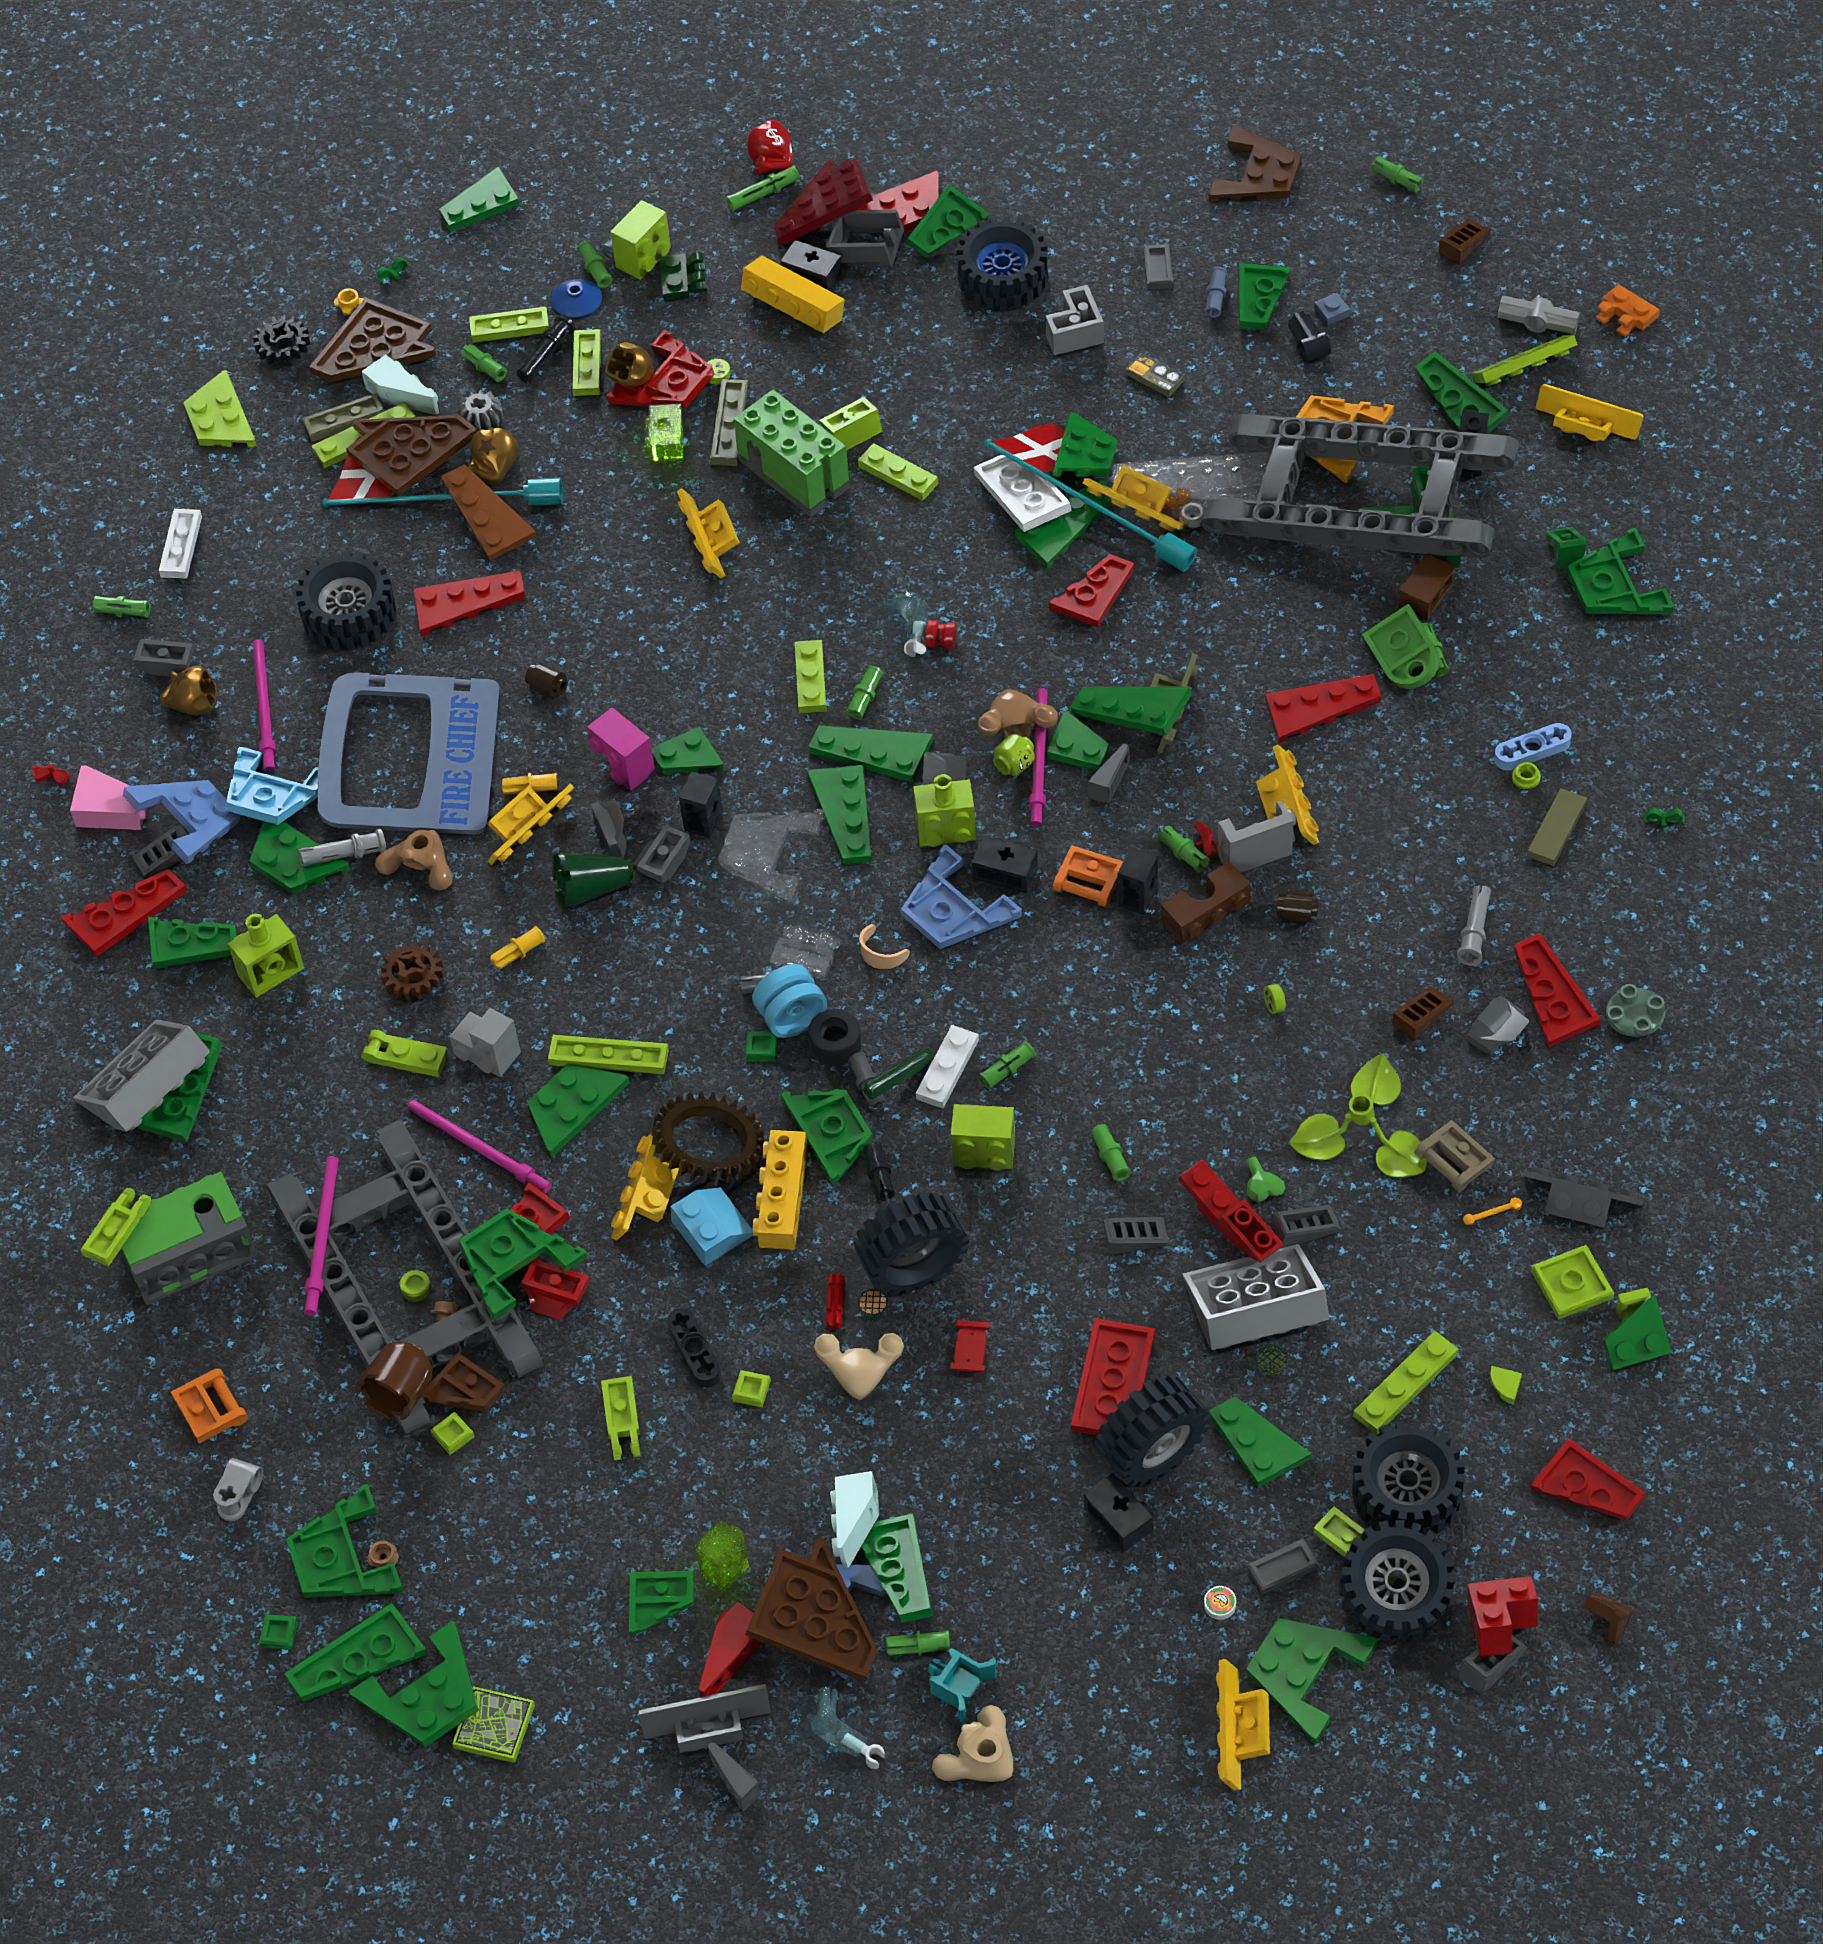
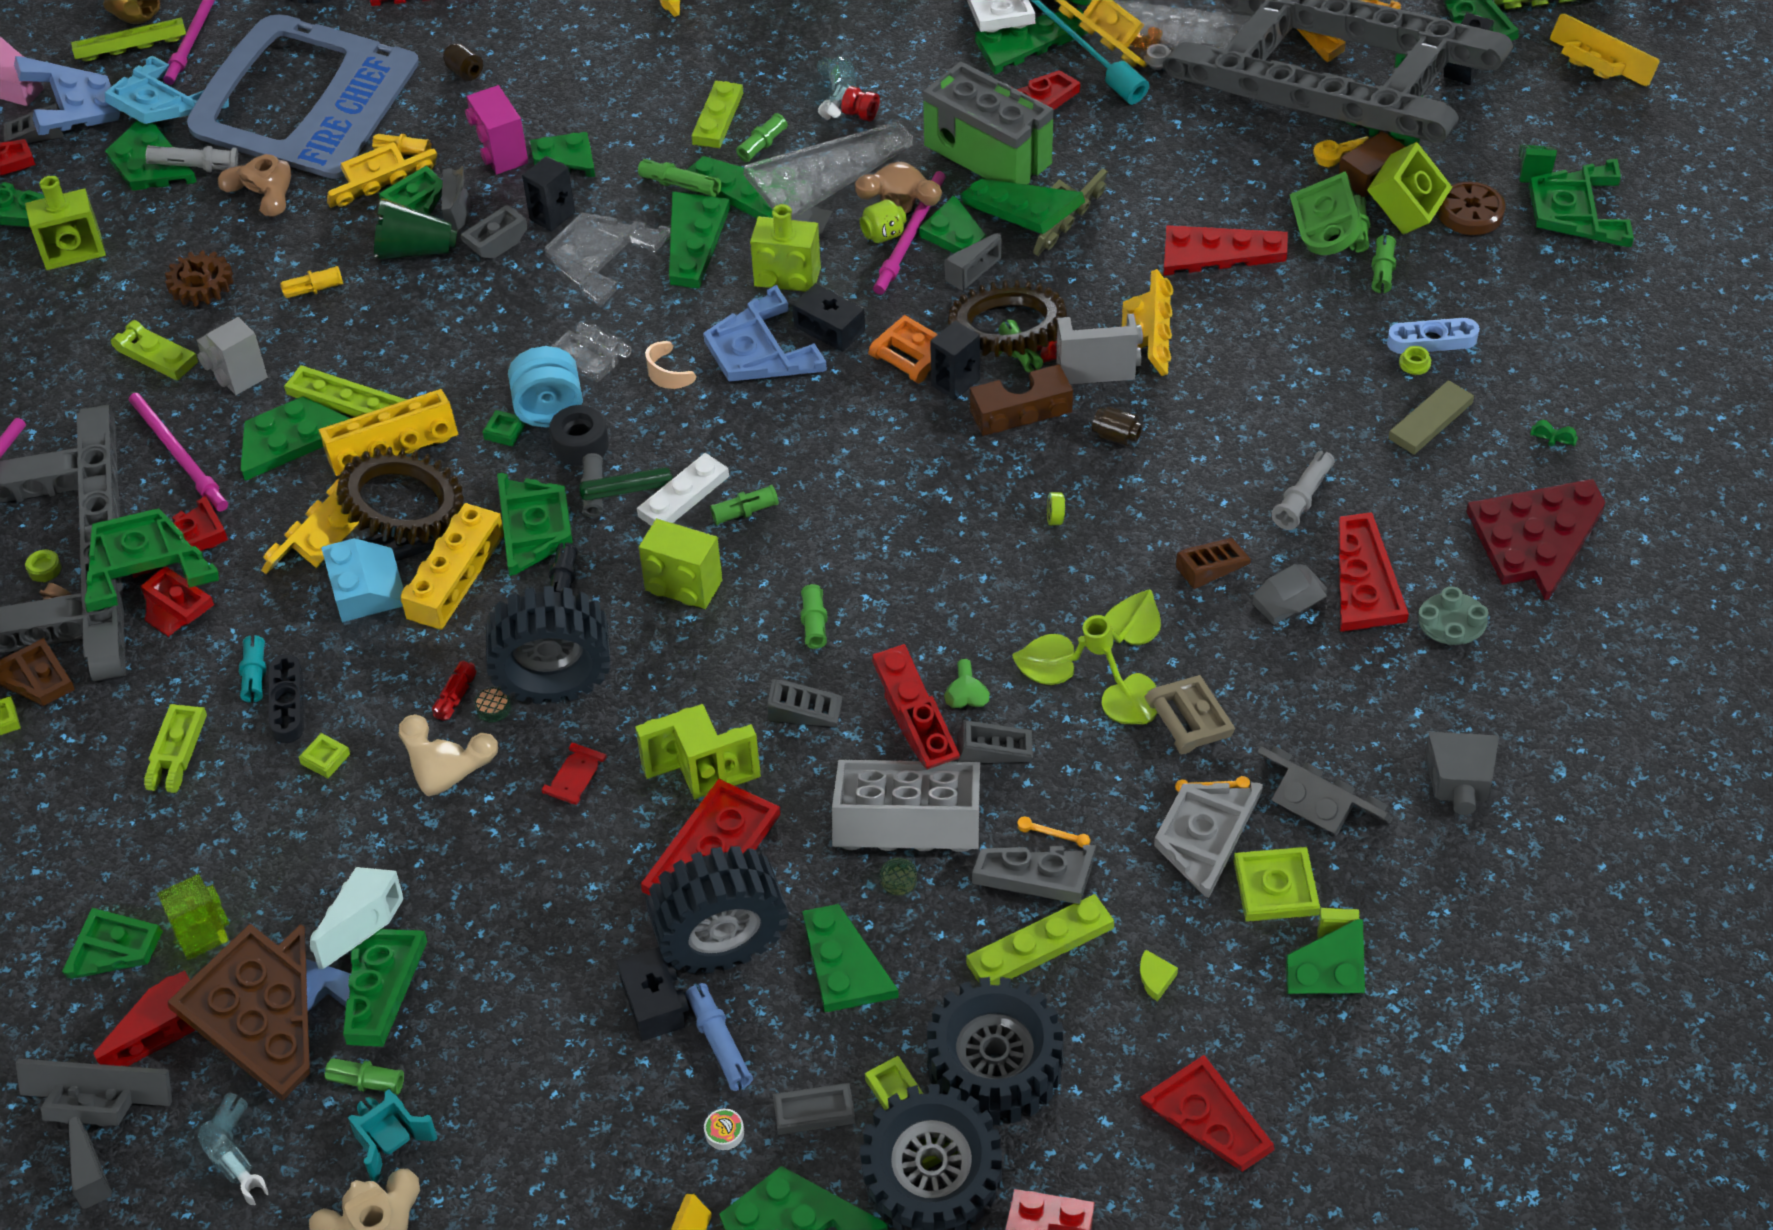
camera: 15 degrees right, 5 degrees down
(201, 737) = (117, 42): none -> lime plate
(569, 832) = (418, 191): none -> green wing
(652, 1329) = (252, 668): none -> teal pin
(669, 1076) = (404, 424): none -> yellow brick
(796, 753) = (669, 175): none -> bright green pin
(932, 721) = (821, 170): none -> clear wing
(1071, 1299) = (691, 743): none -> lime bracket
(1075, 636) = (987, 126): none -> piece
(1176, 1522) = (712, 1023): none -> medium blue pin
(1194, 803) = (1046, 302): none -> dark brown piece
(1355, 1287) = (1025, 825): none -> light orange hinge
(1381, 580) = (1329, 152): none -> yellow plate
(1387, 1325) = (1044, 874): none -> dark grey wing
(1468, 685) = (1383, 264): none -> bright green pin
(1469, 607) = (1409, 188): none -> lime brick
(1501, 1252) = (1205, 829): none -> light grey wing
(1524, 594) = (1472, 208): none -> reddish brown wheel
(1677, 912) = (1537, 531): none -> dark red wing
(1685, 1144) = (1461, 767): none -> dark grey torso

